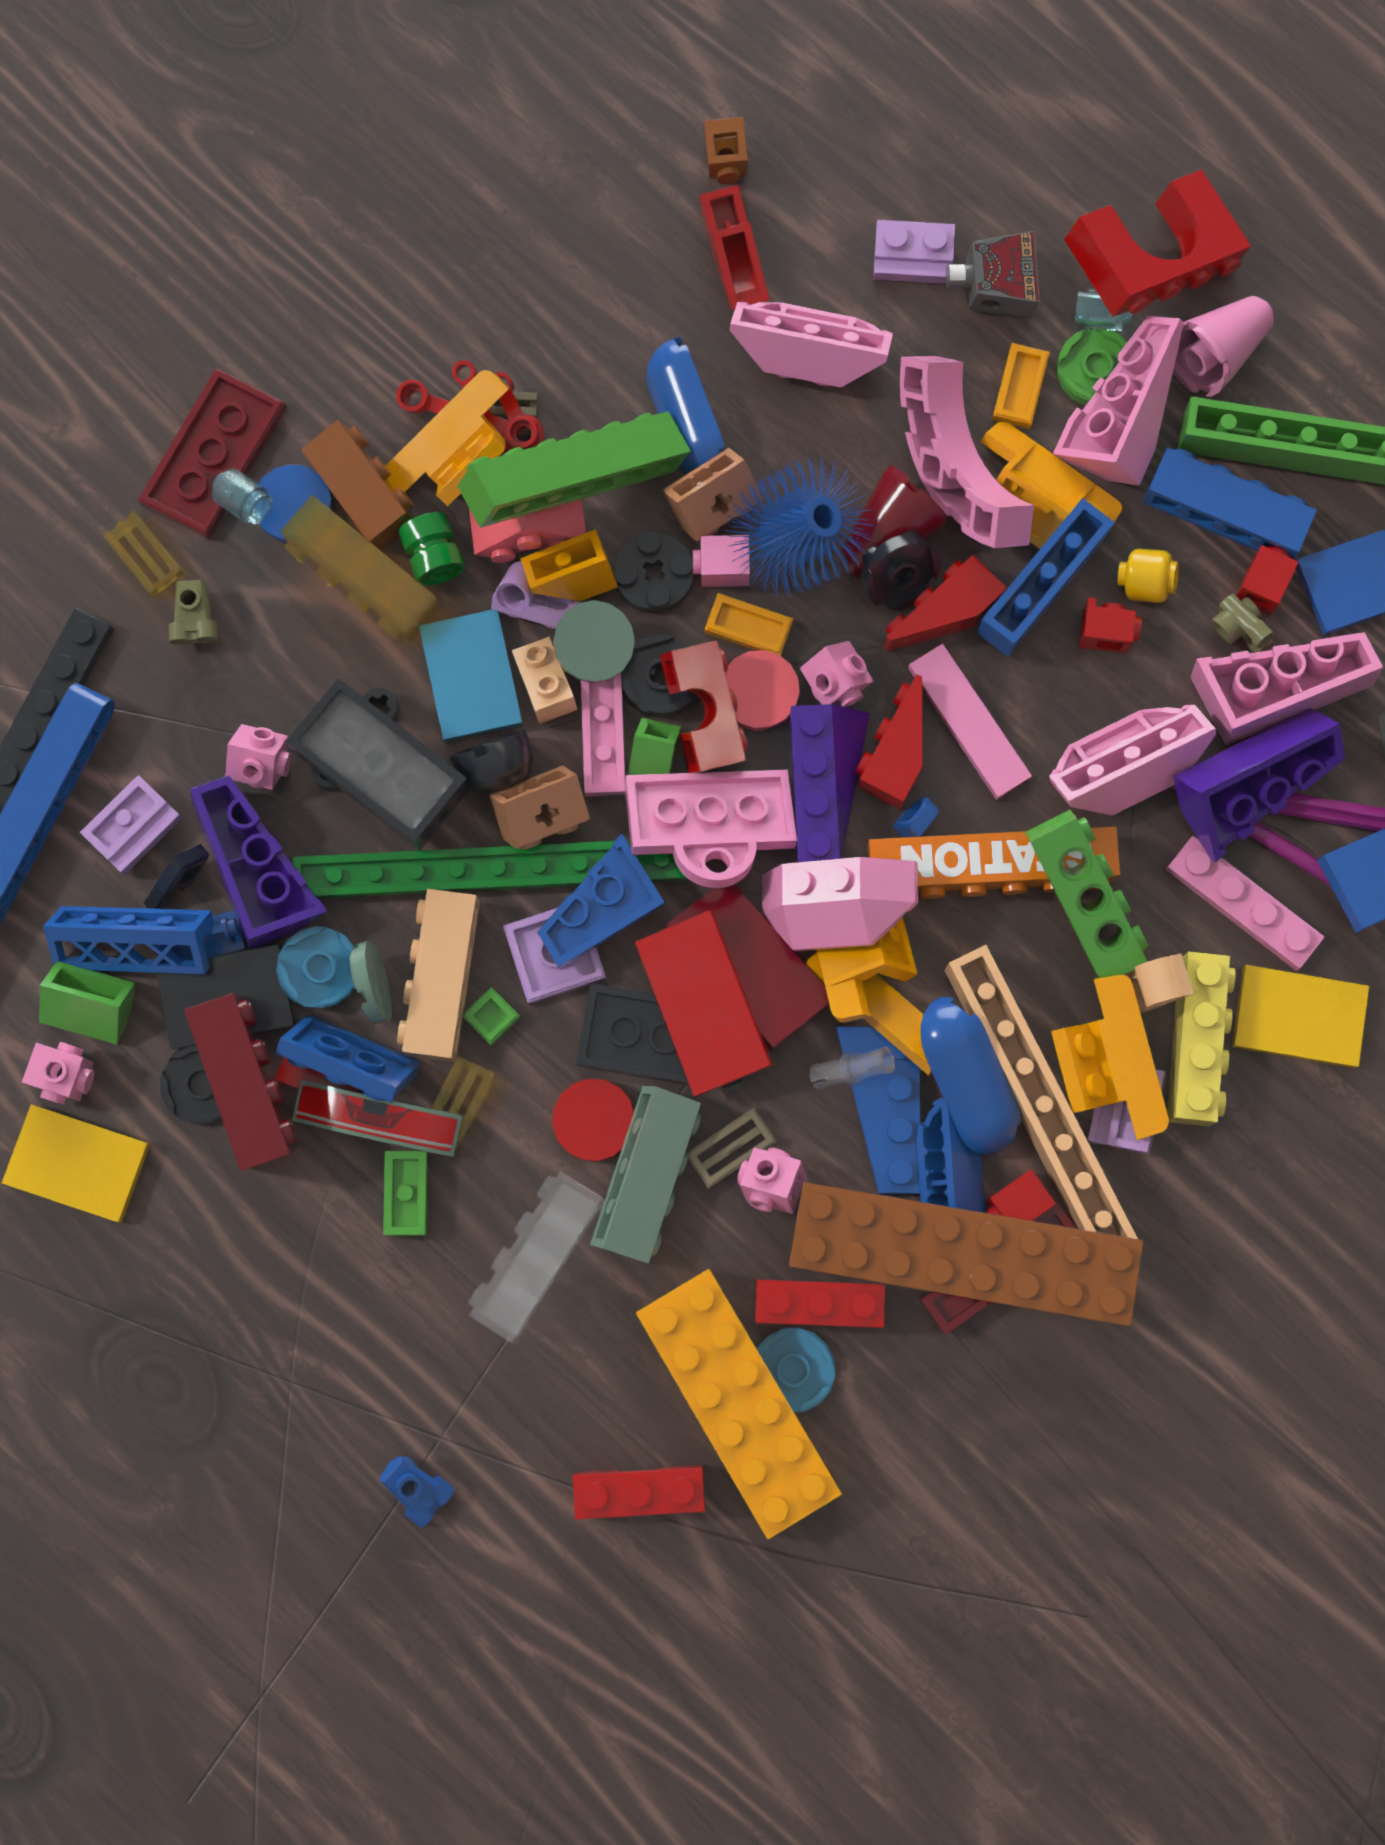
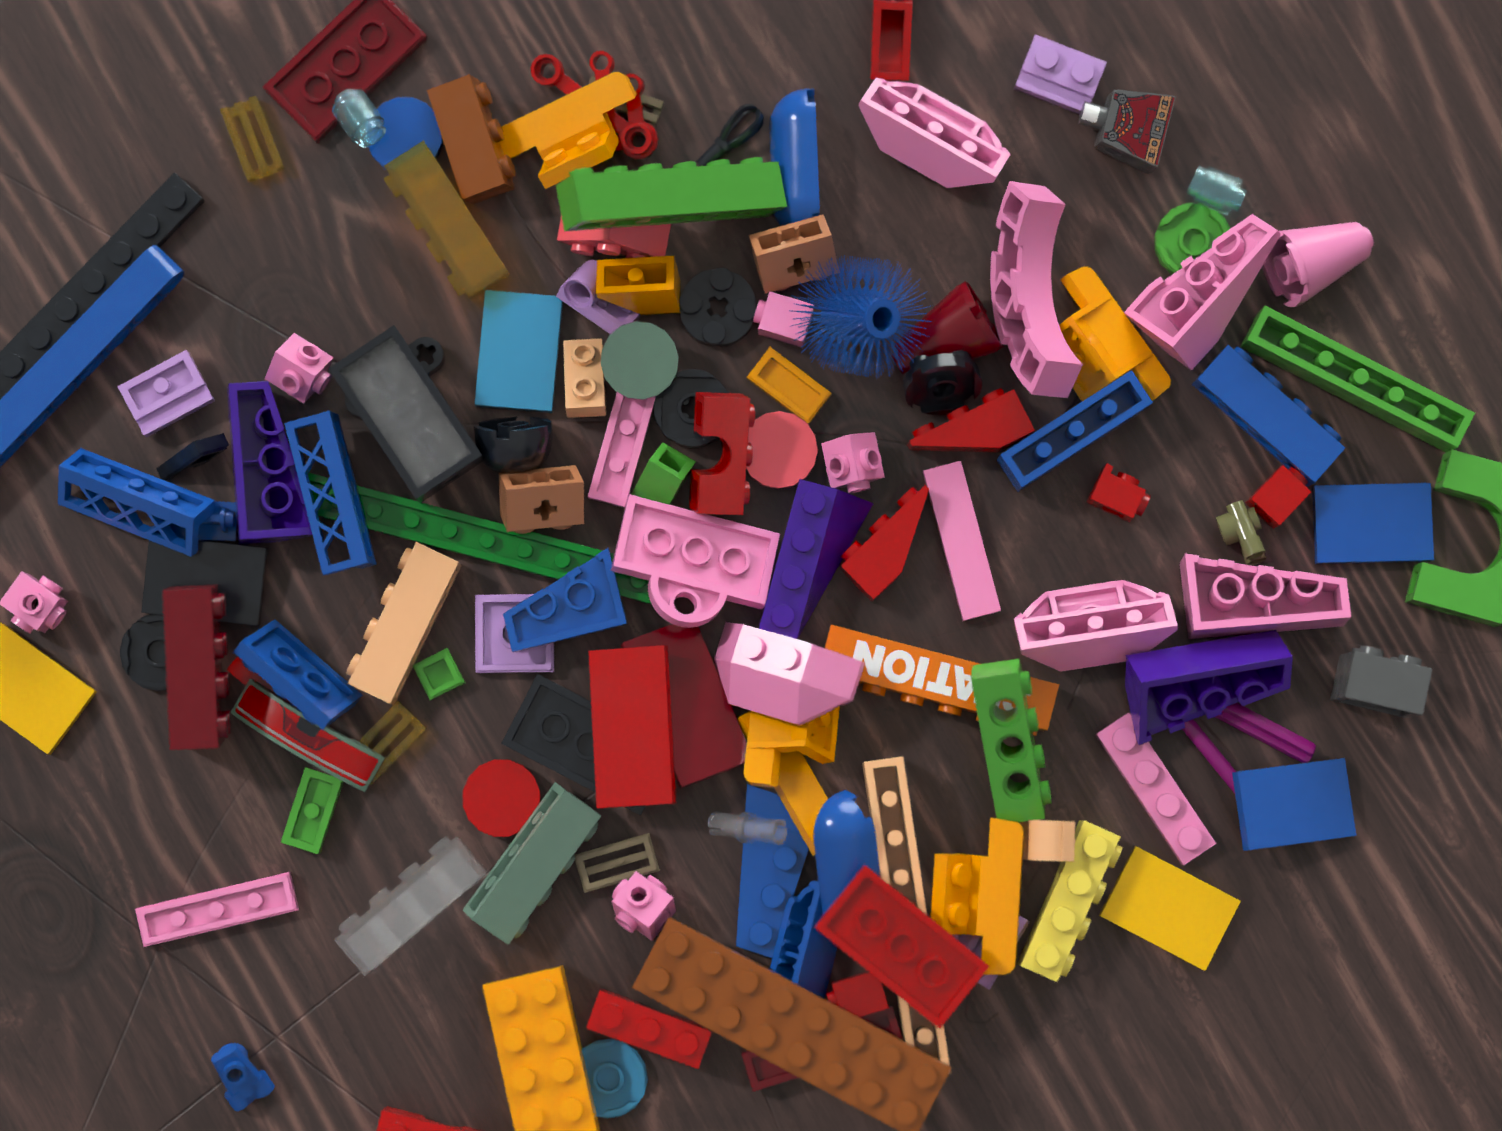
camera: 10 degrees right, 5 degrees up
(86, 1002) = (77, 544): bright green brick -> none
(193, 621) = (280, 222): olive plate -> none
(316, 967) = (293, 581): dark azure tile -> none
(338, 857) = (345, 491): none -> blue fence
(338, 1325) = (217, 909): none -> bright pink tile
(372, 981) = (339, 611): sand green tile -> none
(429, 542) = (519, 227): green wheel -> none
(617, 377) = (721, 146): none -> black piece
(916, 818) = (882, 616): blue tile -> none
(1020, 386) = (1116, 237): light orange tile -> none
(1051, 1133) = (901, 946): none -> red plate
(1131, 277) = (1247, 173): red arch -> none
(1149, 575) = (1171, 458): yellow head -> none

